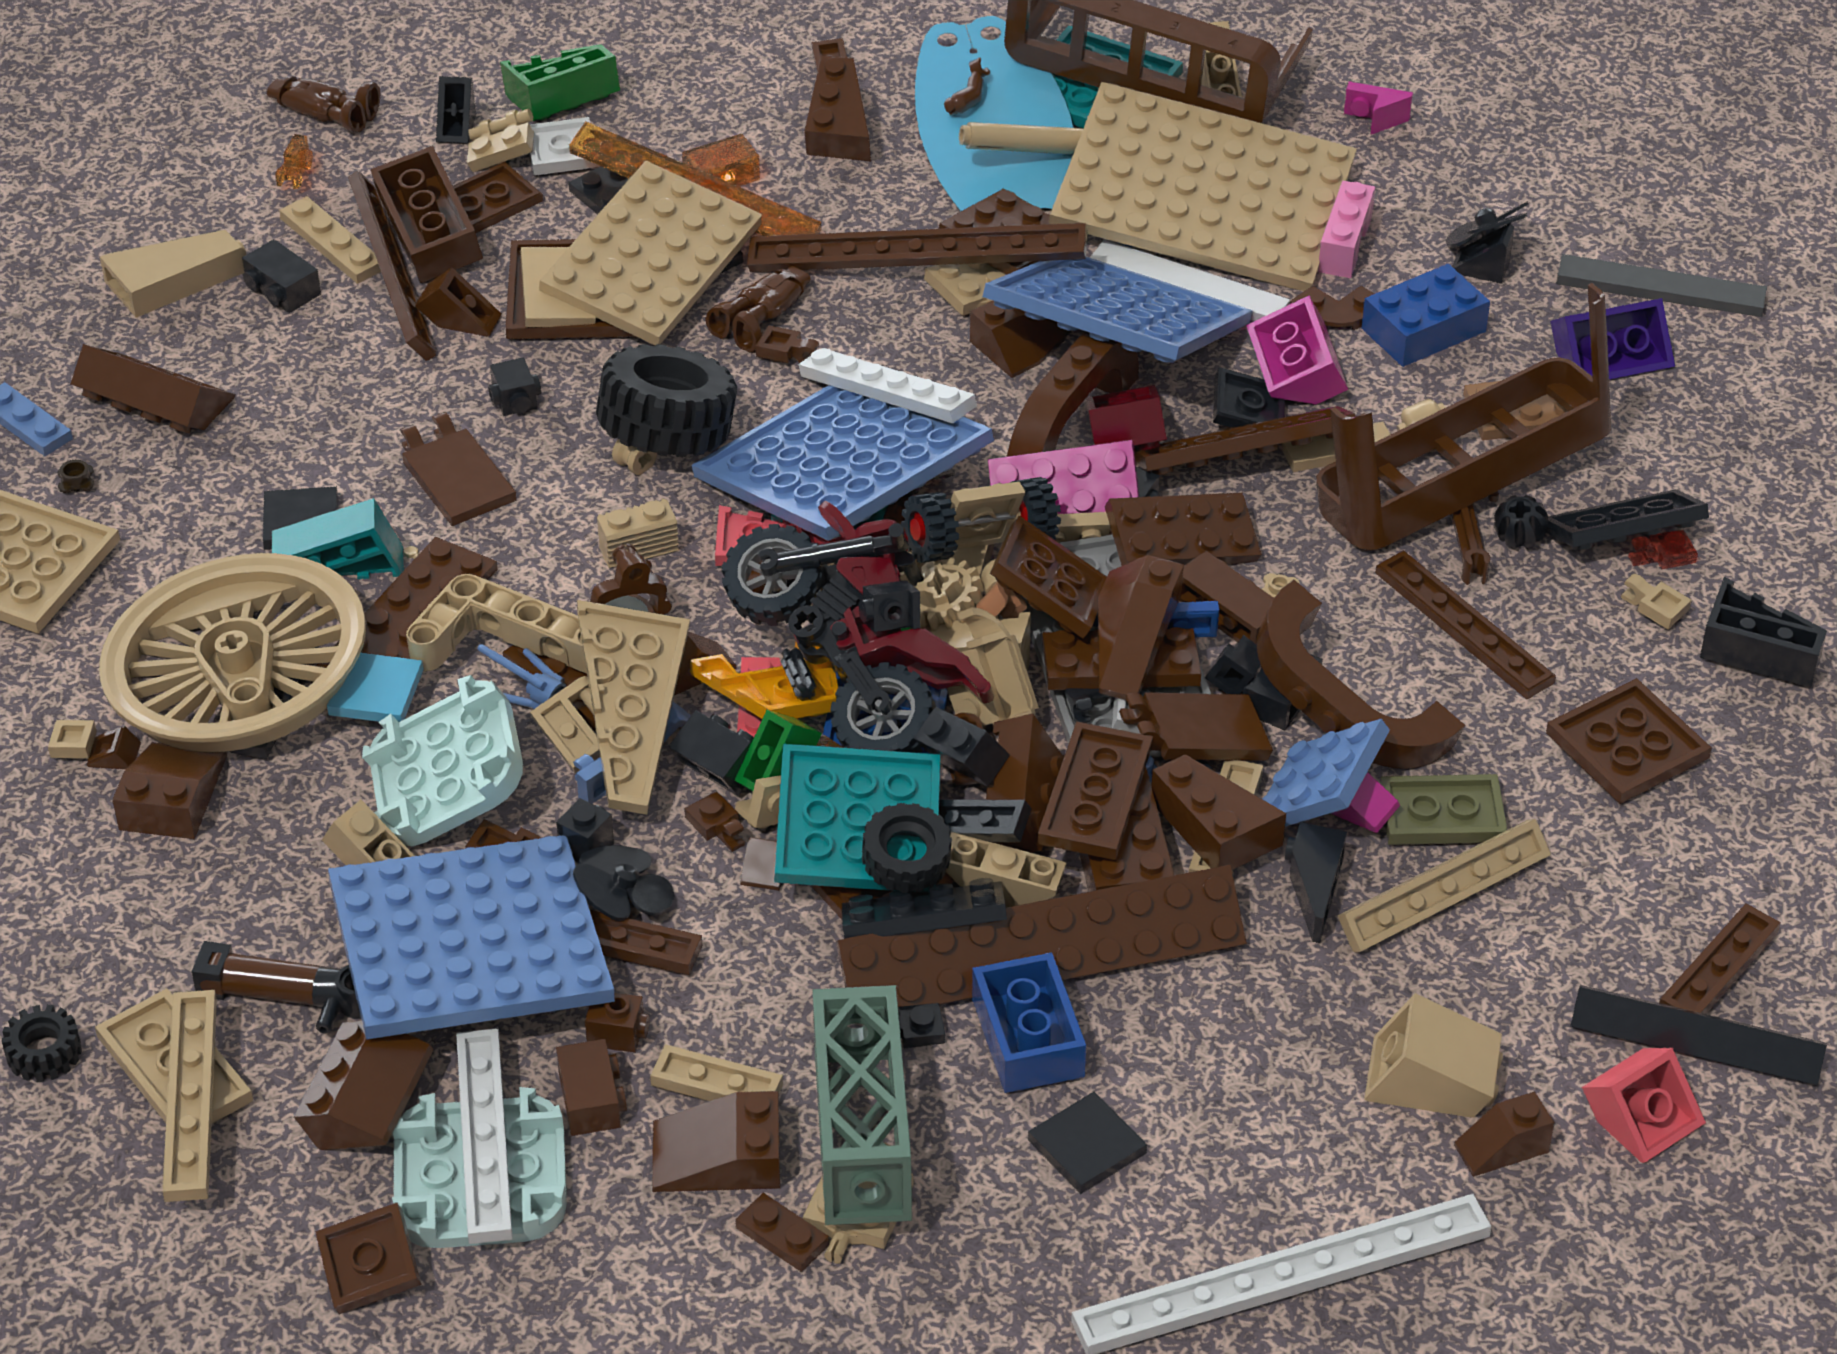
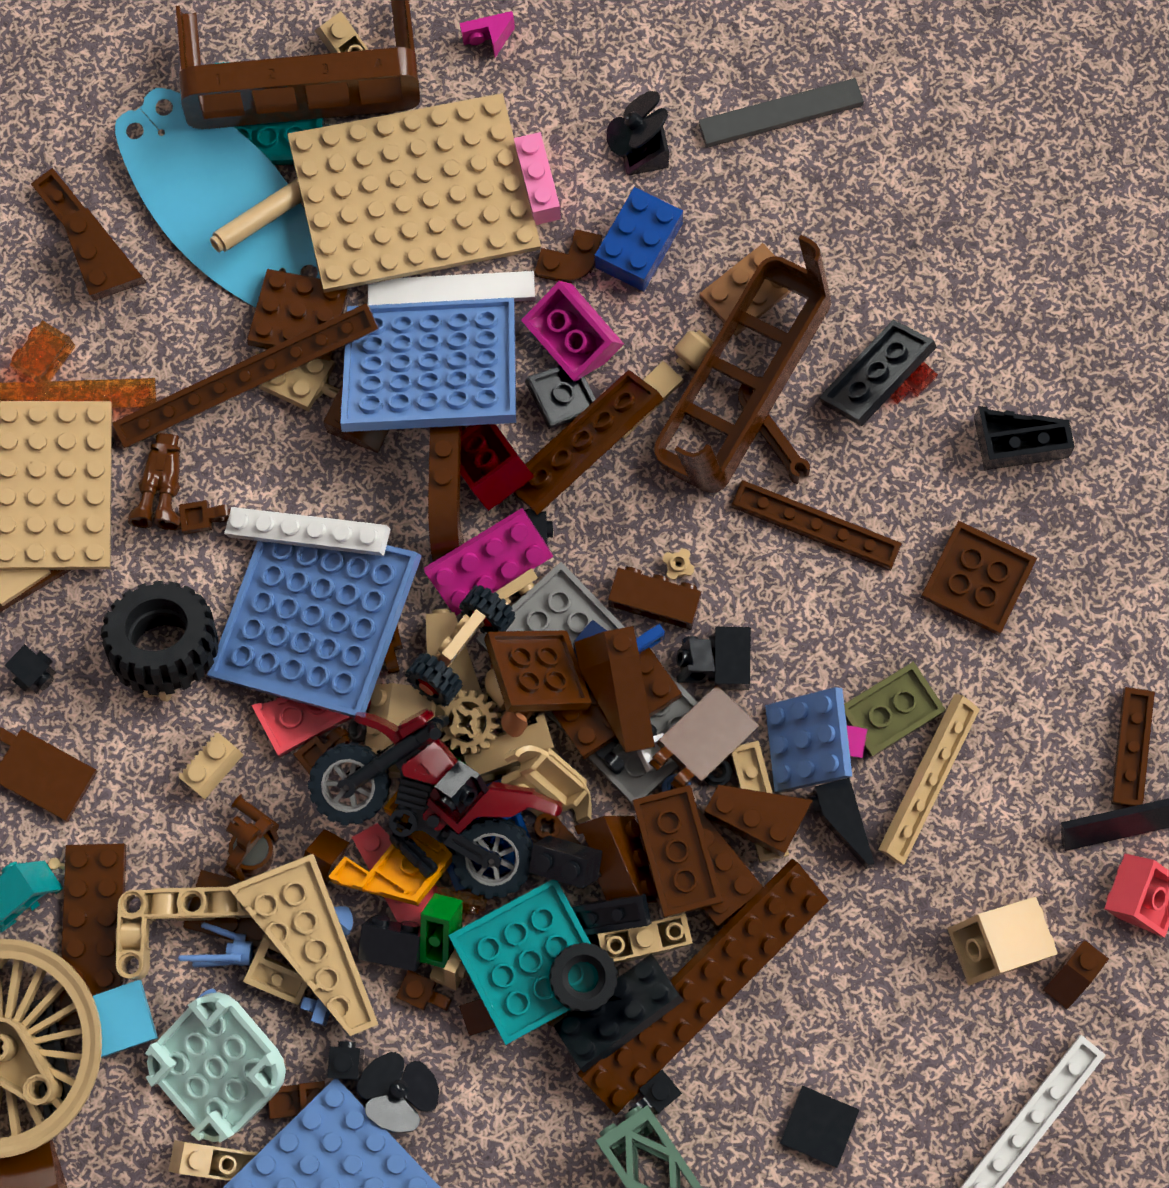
camera: 25 degrees left, 30 degrees up
(647, 943) = (442, 1132): reddish brown plate -> none
(972, 94) = (189, 183): reddish brown arm -> none
(1028, 1022) = (734, 1060): blue brick -> none
(1183, 527) = (590, 555): reddish brown plate -> none
(1329, 701) = (767, 668): reddish brown arch -> none
(1521, 521) = (813, 405): black piece -> none
(1635, 339) = (780, 194): dark purple slope -> none
(1658, 603) = (936, 436): tan plate -> none

